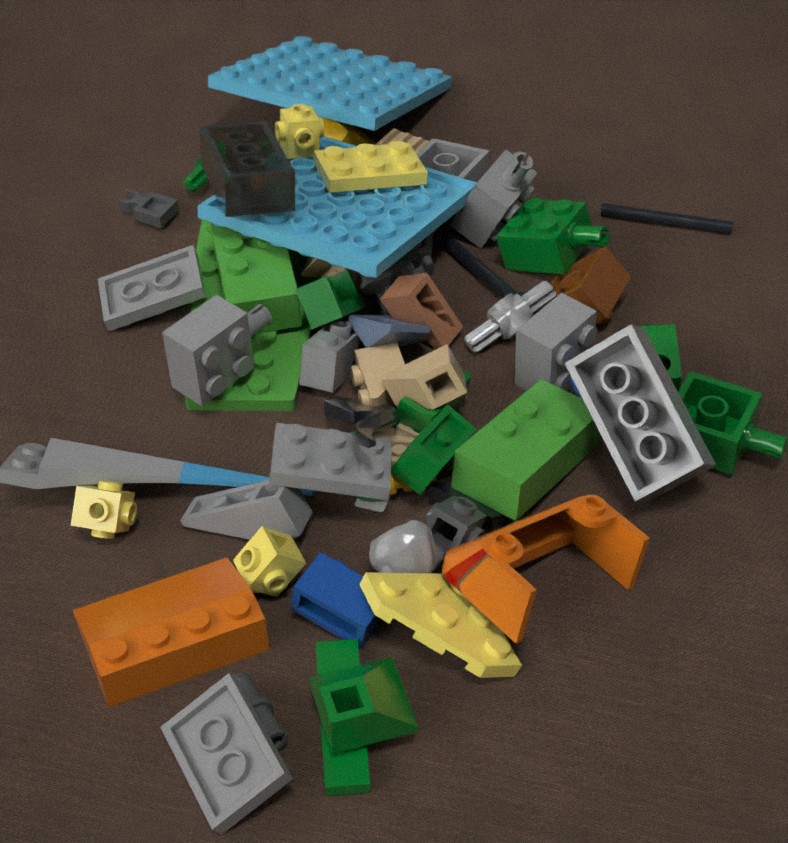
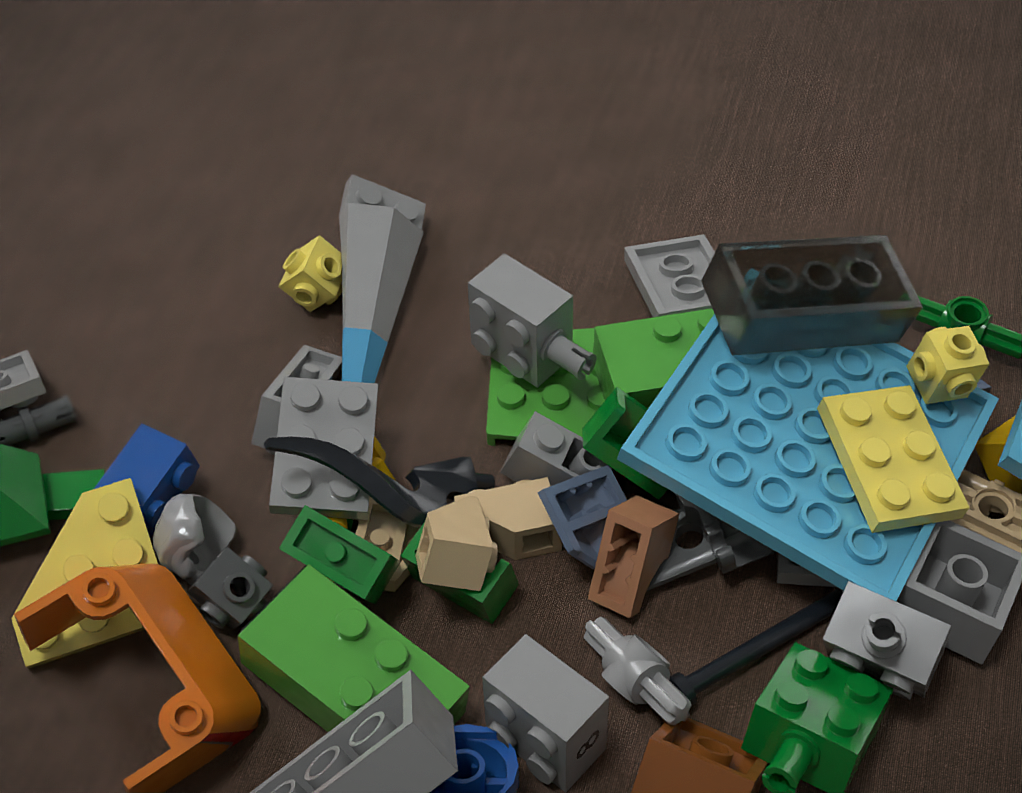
camera: 90 degrees right, 5 degrees up
(171, 630) = (157, 347): orange slope -> none
(269, 561) = (226, 421): light yellow brick -> none

